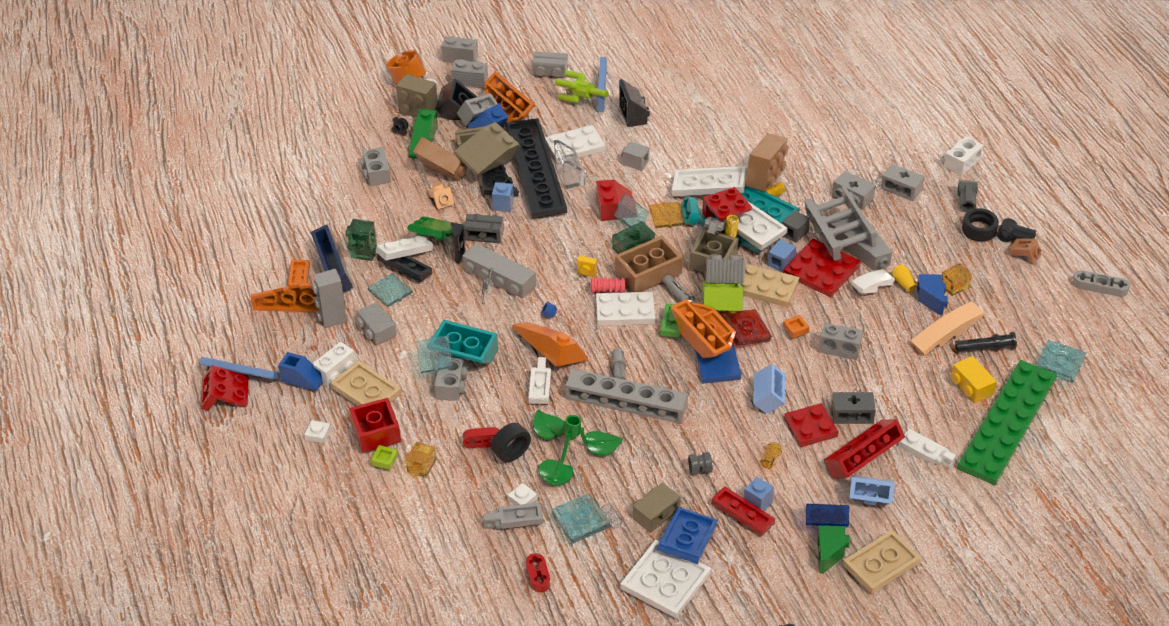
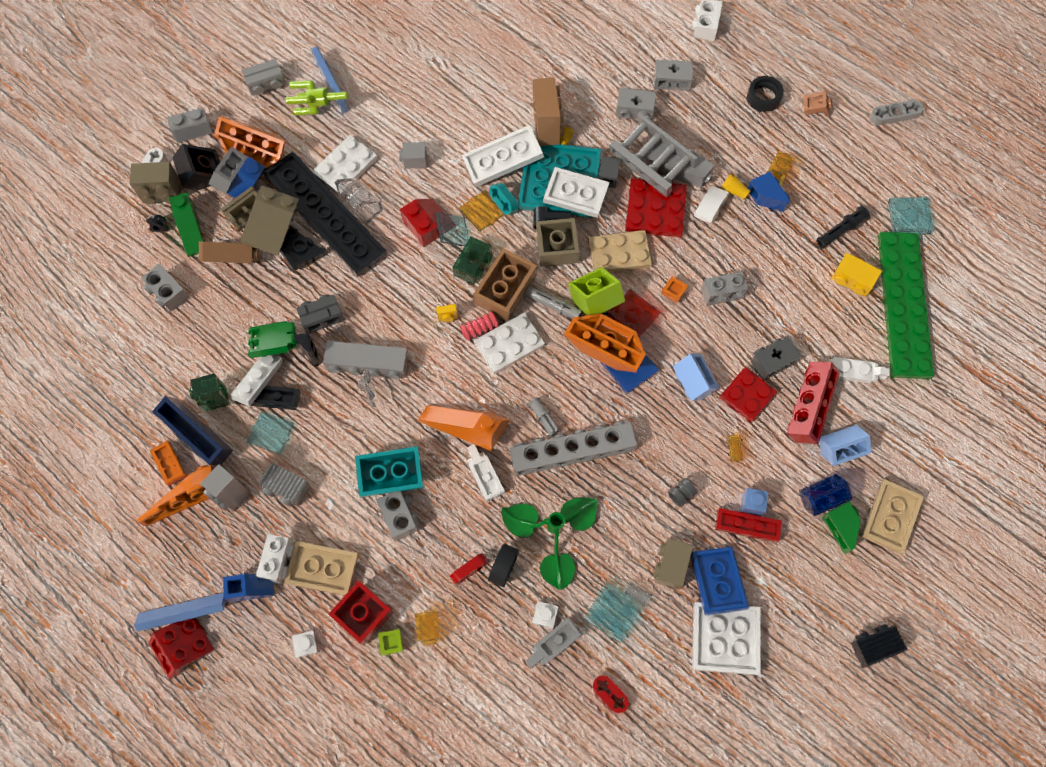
camera: 30 degrees left, 25 degrees up
(408, 63) = (120, 149): orange brick -> none
(434, 354) = (371, 503): clear light blue piece -> none
(441, 195) = (252, 291): light nougat bracket -> none
(459, 48) = (161, 99): light grey brick -> none
(502, 197) = (316, 267): medium blue brick -> none
(548, 310) = (440, 383): blue hinge -> none
(632, 105) = (376, 94): black slope -> none
(669, 326) = (556, 330): bright green plate -> none
(714, 225) = (548, 215): light grey hinge -> none
(725, 204) = (542, 183): red bracket -> none
(725, 269) = (584, 262): light grey brick -> none
(730, 227) = (560, 206): yellow piece -> none
(781, 255) = (616, 212): medium blue brick -> none
(946, 327) = (803, 227): light nougat slope -> none
(967, 191) = (734, 61): dark grey piece -> none
(1010, 230) = (795, 89): black piece -> none

